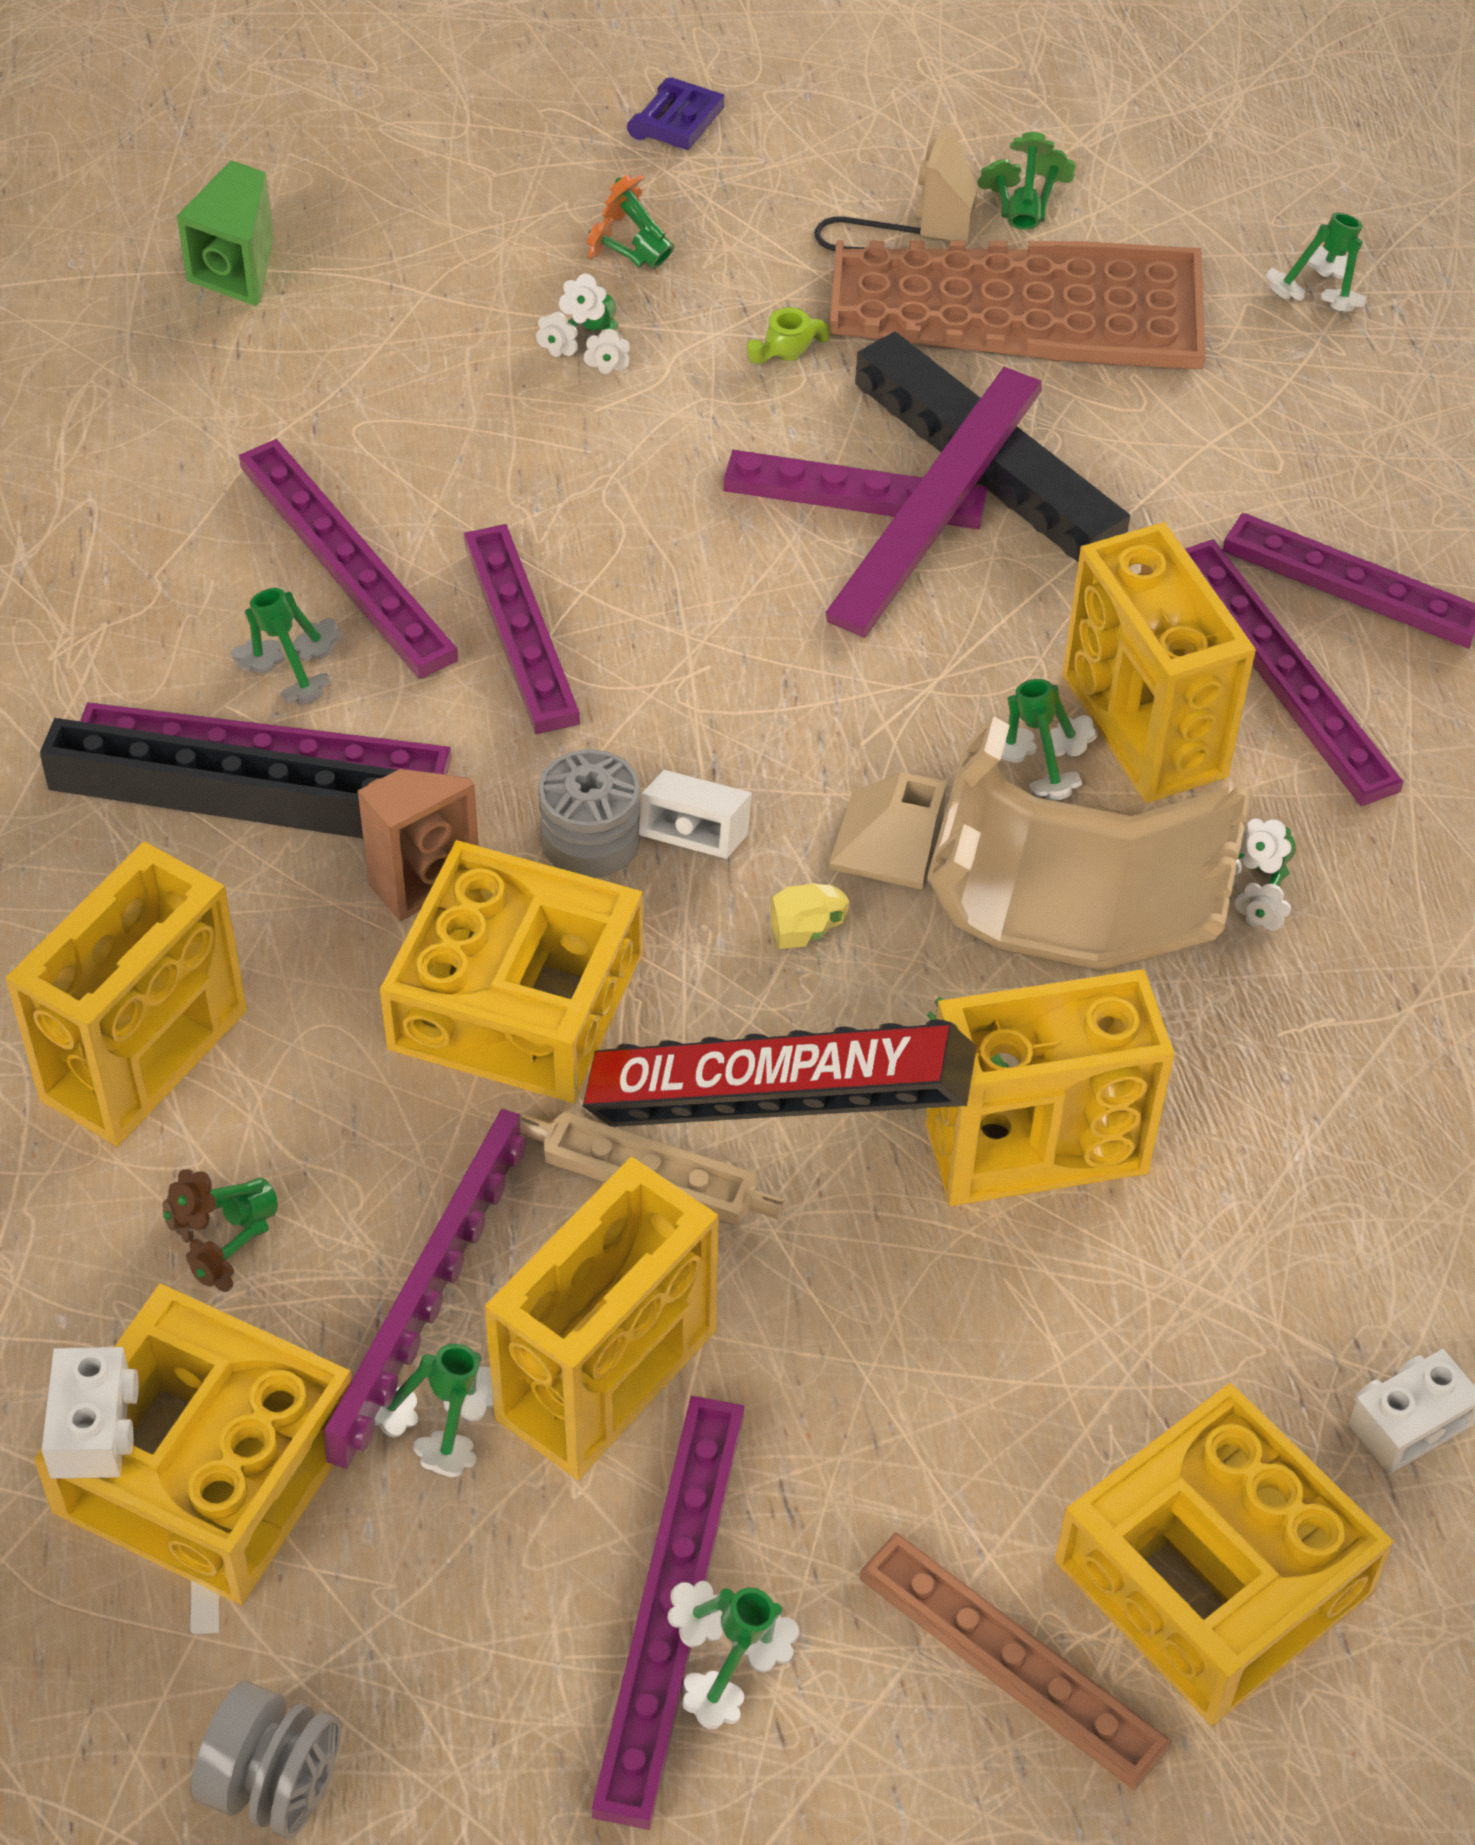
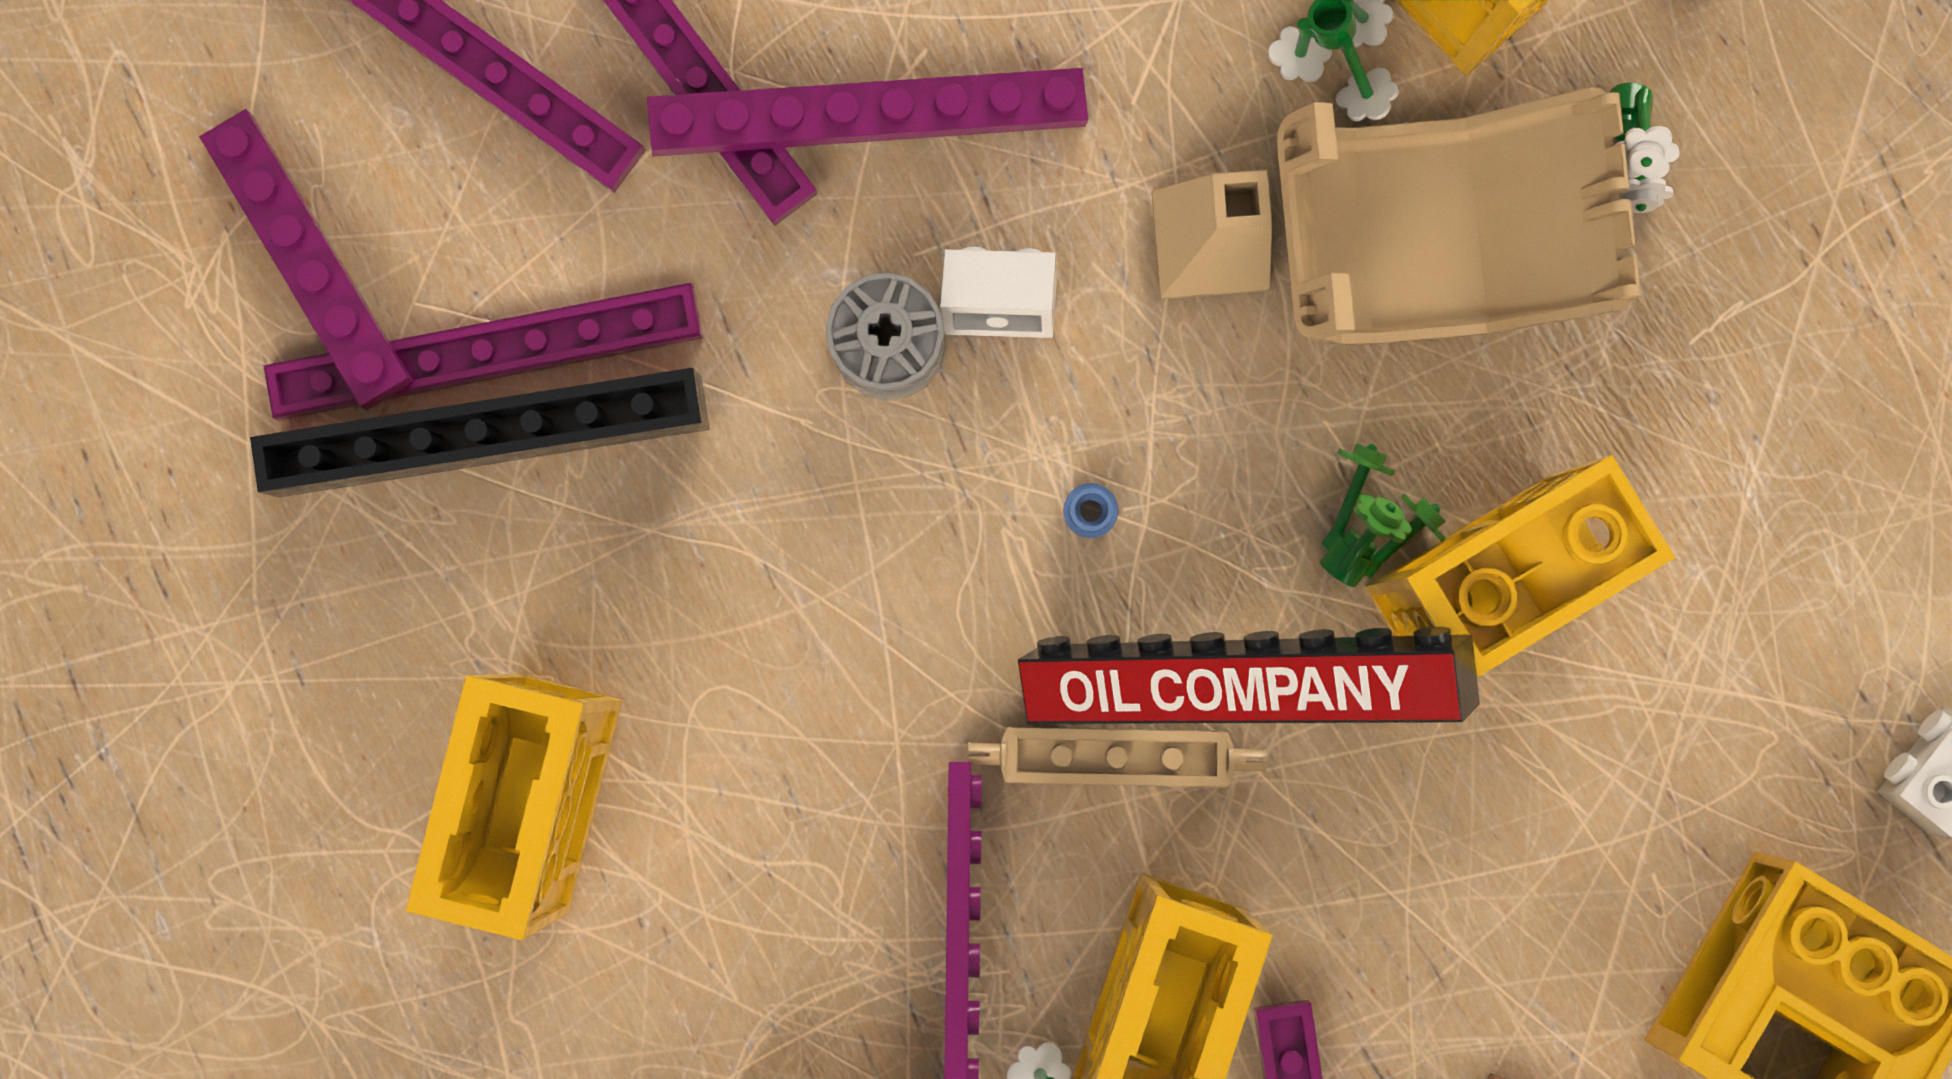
camera: 15 degrees left, 35 degrees up
(159, 644) = (306, 259): none -> magenta plate
(242, 1204) = (735, 951): plant -> none
(273, 613) = (426, 208): plant -> none
(410, 830) = (723, 464): nougat slope -> none
(475, 952) = (877, 565): yellow piece -> none
(645, 677) = (866, 112): none -> magenta plate
(706, 979) = (1099, 495): none -> medium blue plate
(806, 913) = (1164, 382): light yellow rock -> none

